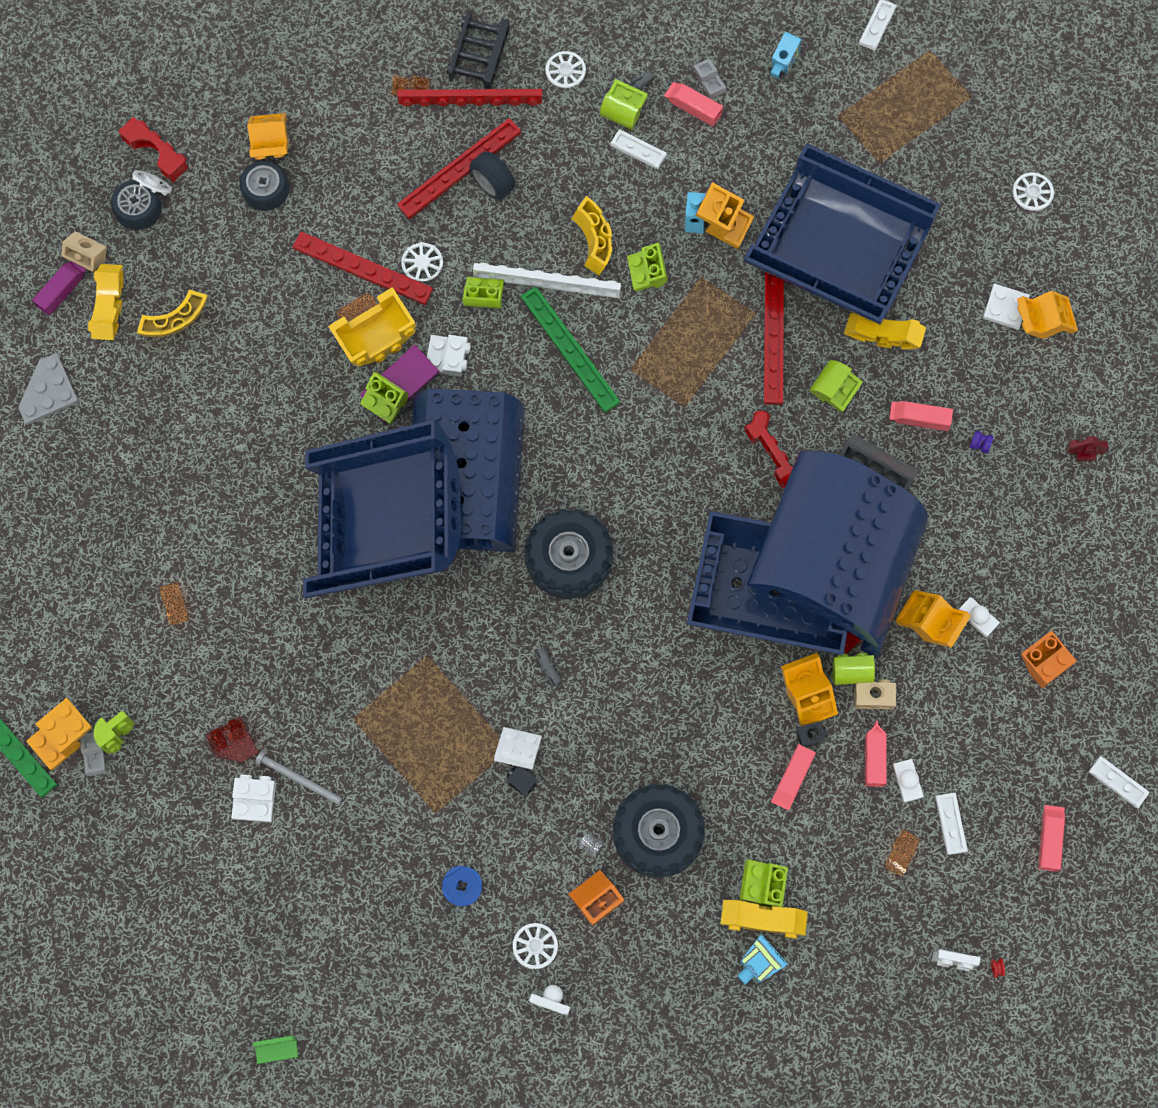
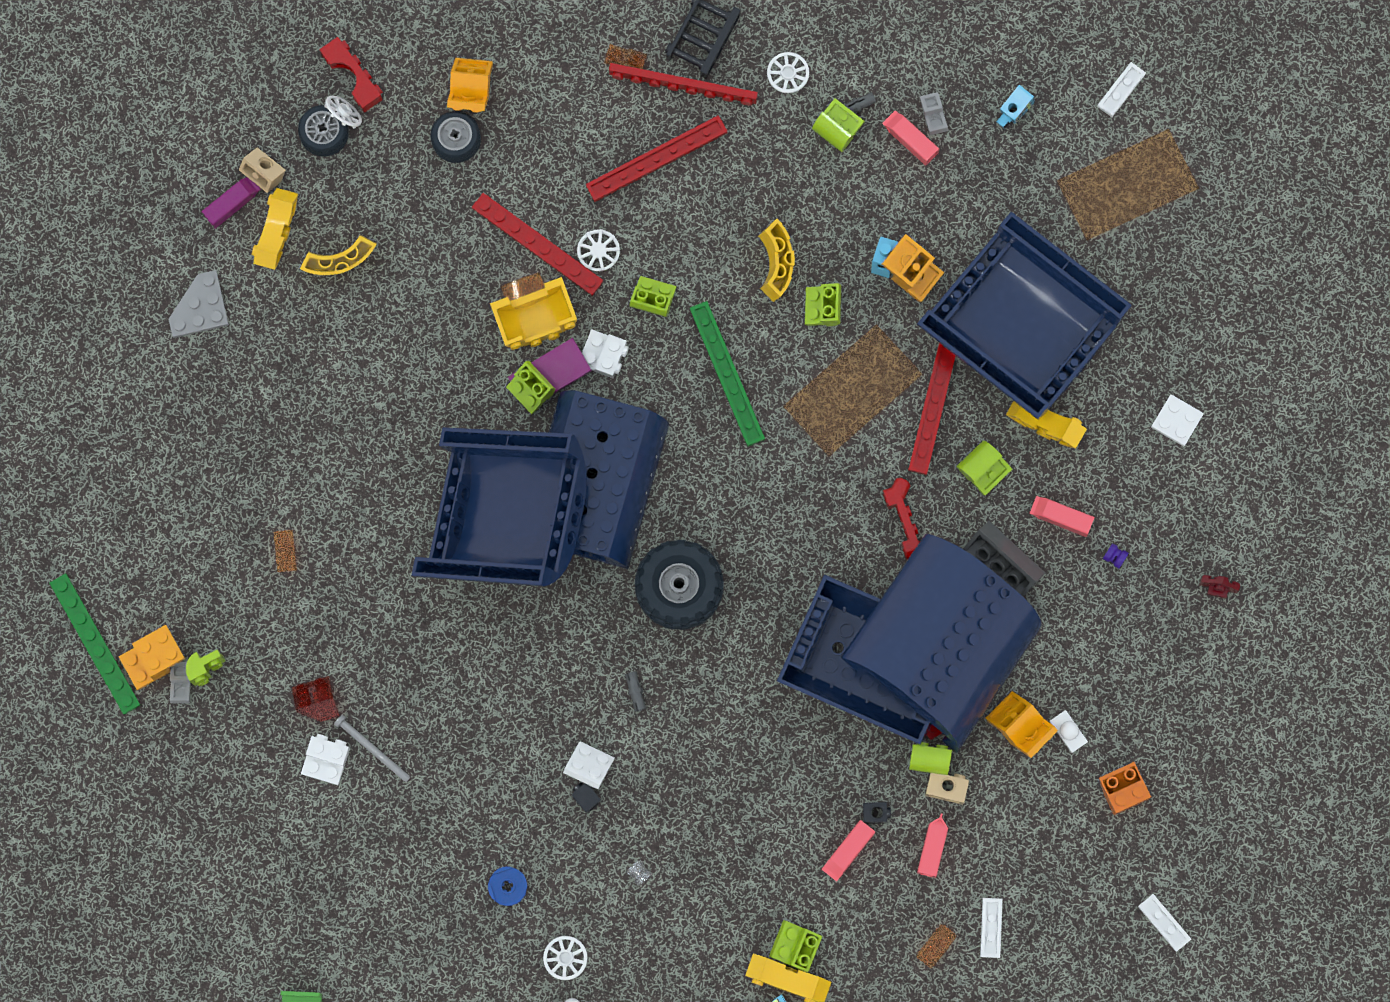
camera: 15 degrees right, 5 degrees up
(430, 734) = (507, 732): clear orange piece -> none
(492, 175) = (687, 175): black wheel -> none
(547, 280) = (724, 298): white plate -> none
(596, 898) = (633, 925): orange slope -> none
(638, 149) = (843, 175): white tile -> none
(664, 809) = (703, 852): black wheel -> none
(809, 689) = (883, 769): light orange bracket -> none
(908, 780) = (959, 877): white tile -> none
(1033, 192) = (1236, 304): white wheel -> none
(1046, 315) = (1214, 439): light orange bracket -> none
(1051, 838) = (1084, 962): coral piece -> none

